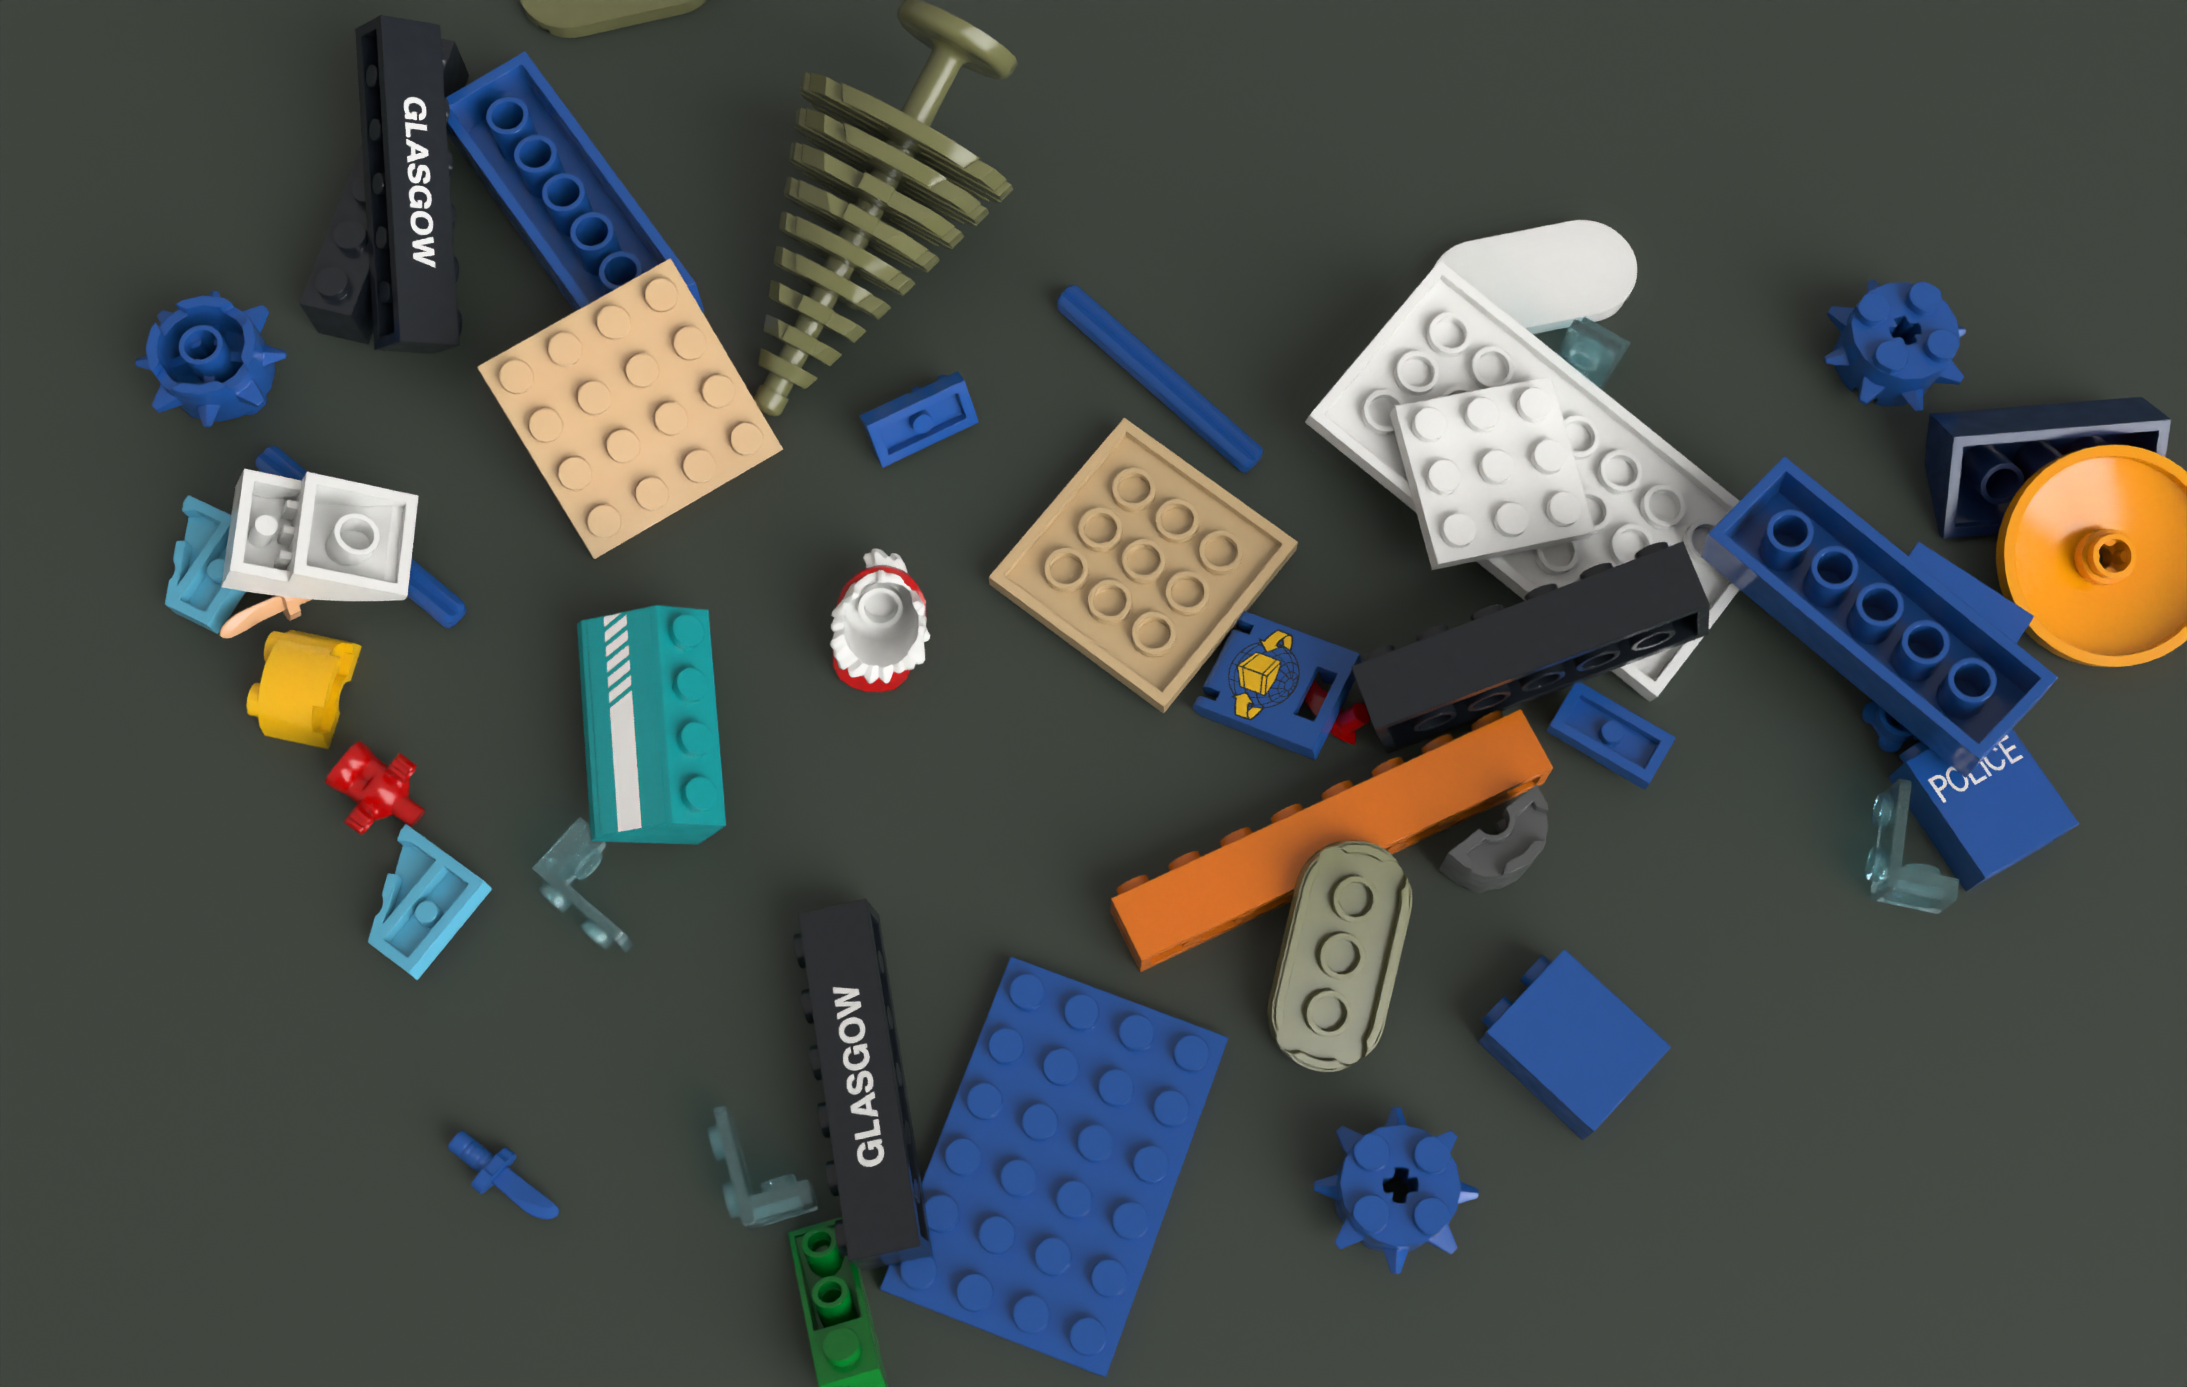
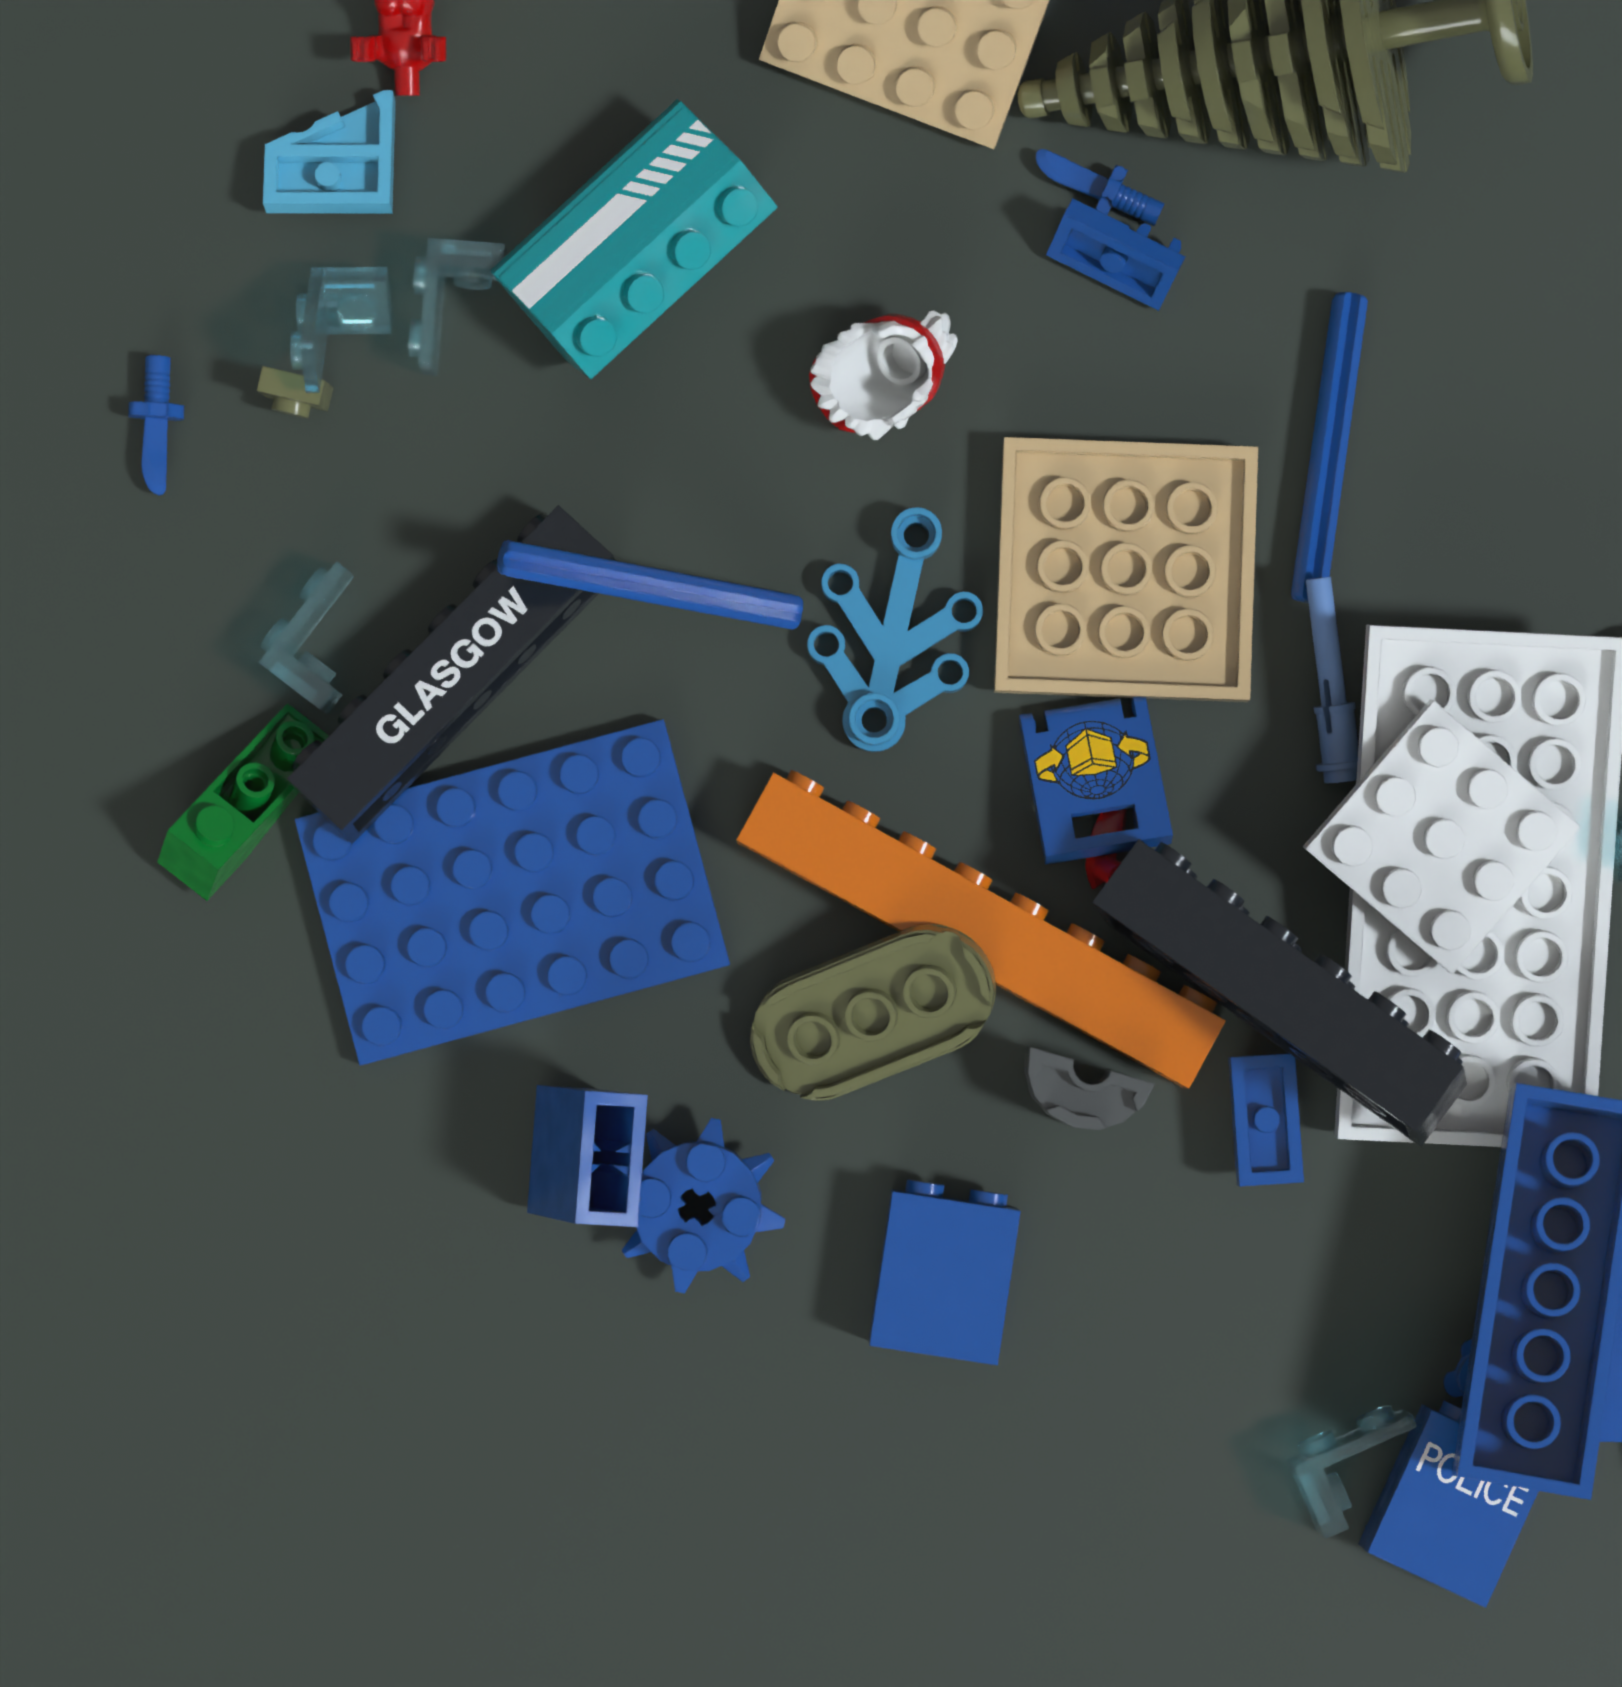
camera: 55 degrees right, 15 degrees up
(528, 969) = (337, 303): none -> clear light blue bracket
(563, 1052) = (289, 393): none -> olive plate
(870, 398) = (1108, 191): none -> blue piece
(905, 890) = (649, 585): none -> blue axle
(1073, 757) = (892, 642): none -> dark azure plant
(1304, 1239) = (587, 1155): none -> blue brick
(1354, 498) = (1335, 715): none -> medium blue pin

